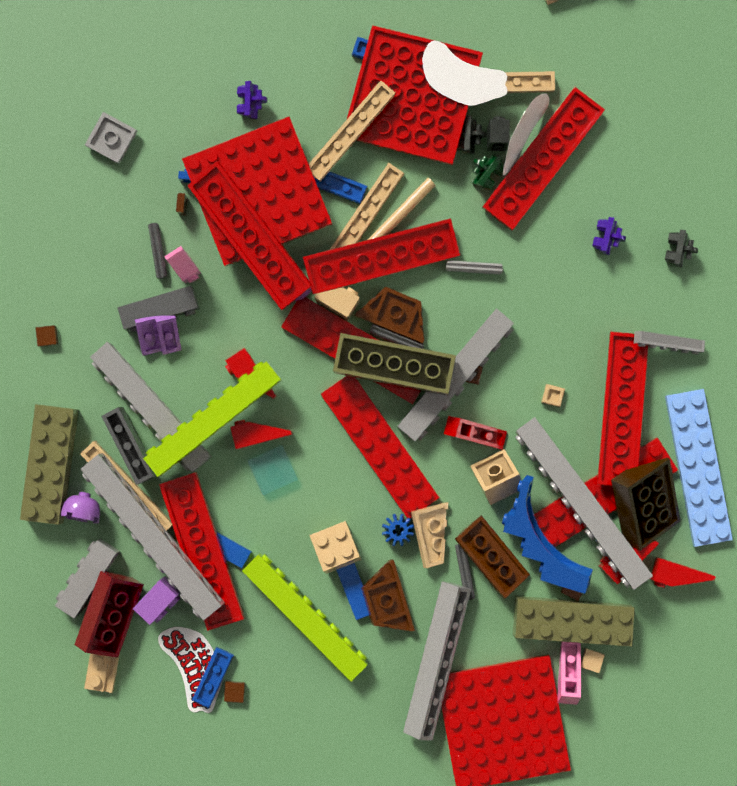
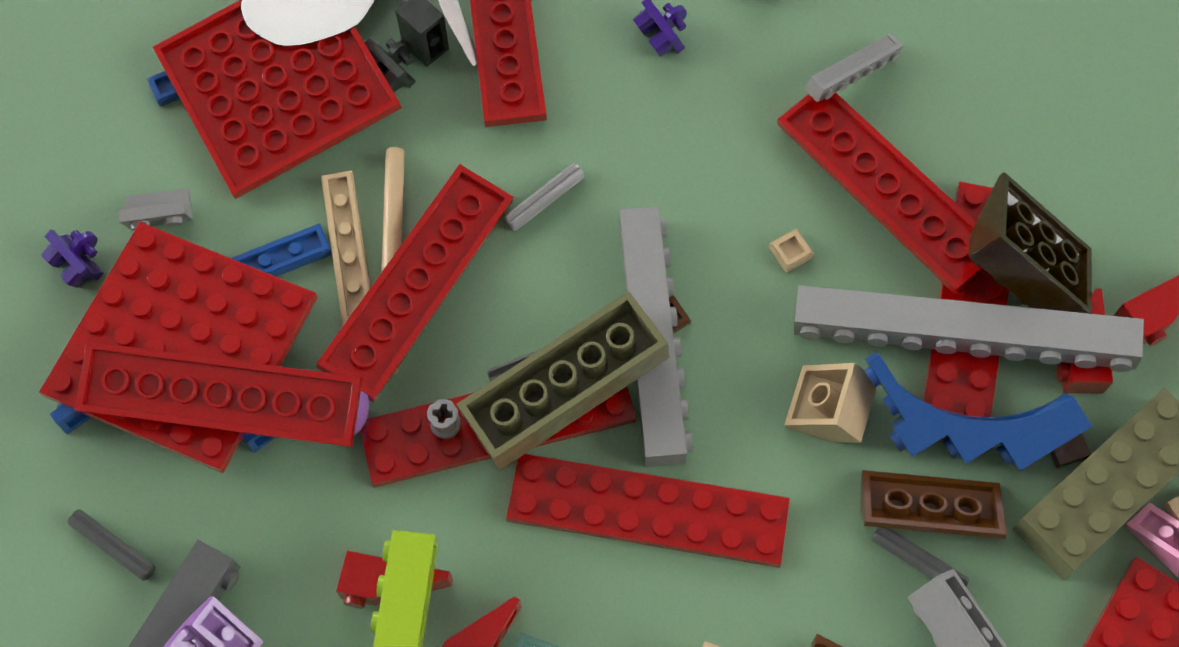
camera: 45 degrees left, 20 degrees down
(181, 205) = (91, 455): reddish brown tile -> none
(183, 265) = (160, 520): bright pink slope -> none
(303, 110) = (157, 208): none -> light grey bracket
(332, 336) = (451, 425): none -> light grey bush
(340, 301) = (415, 378): tan slope -> none
(351, 130) = (237, 174): tan plate -> none
(396, 313) = (501, 332): reddish brown wing -> none
(404, 532) = (768, 589): blue gear -> none
(430, 531) = (823, 551): tan wing -> none
(475, 432) = (745, 377): red slope -> none
(484, 169) = (444, 78): dark green hips -> none
(698, 468) = (1051, 175): light blue plate -> none

